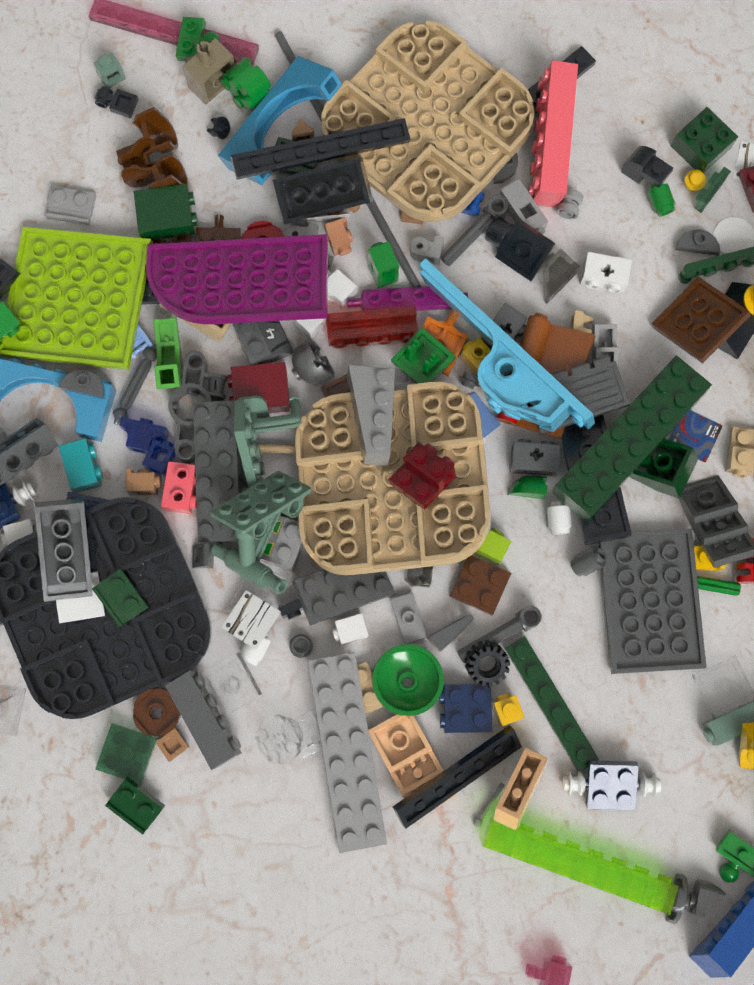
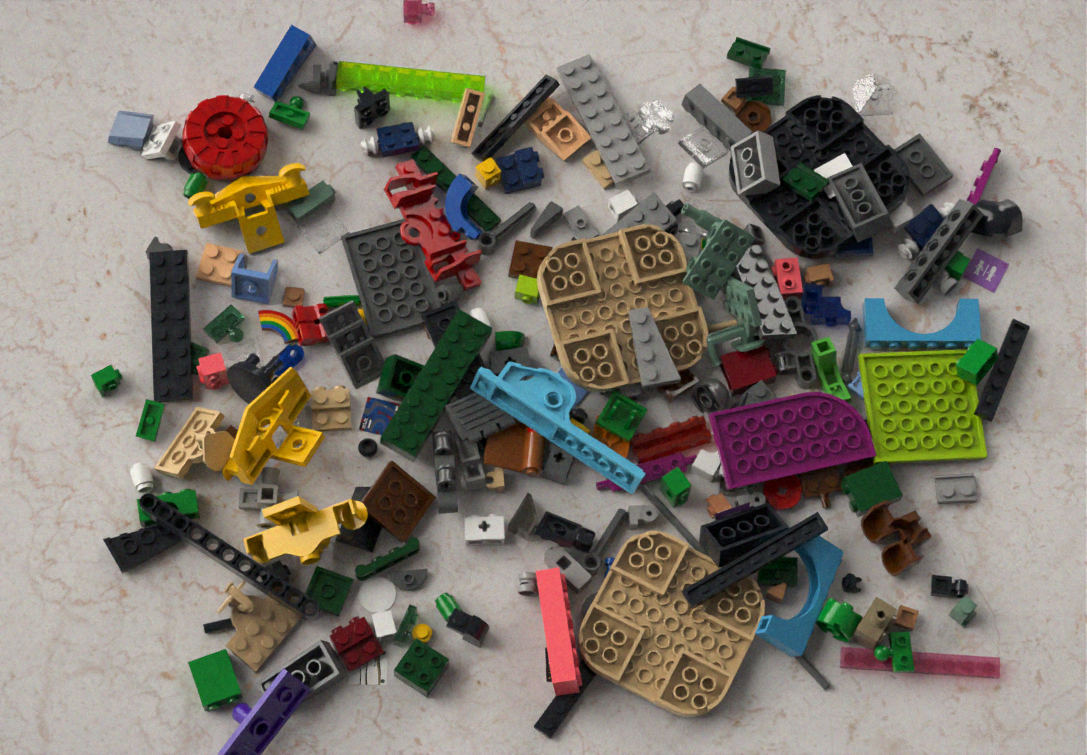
camera: 165 degrees right, 10 degrees down
(81, 465) = (871, 278): teal brick -> none
(84, 383) = (889, 333): dark grey plate -> none
(143, 748) = (754, 86): none -> black plate
(172, 80) = (906, 617): none -> medium nougat plate
(175, 632) = (755, 164): none -> light grey slope
(251, 619) = (702, 192): white sticker -> none
(301, 646) = (658, 186): dark grey plate -> none
(411, 663) = (574, 165): green dish -> none
(423, 475) = (598, 304): dark red plate -> none
(492, 675) = (510, 194): black tyre -> none
(558, 665) = (456, 206): none -> blue arch
(592, 657) = (433, 228): none -> red piece
(639, 339) = (445, 472): none -> dark grey piece
(641, 837) = (371, 106): none -> black plate
(717, 392) = (367, 442): none -> black plate
(735, 194) = (384, 625): none -> white brick

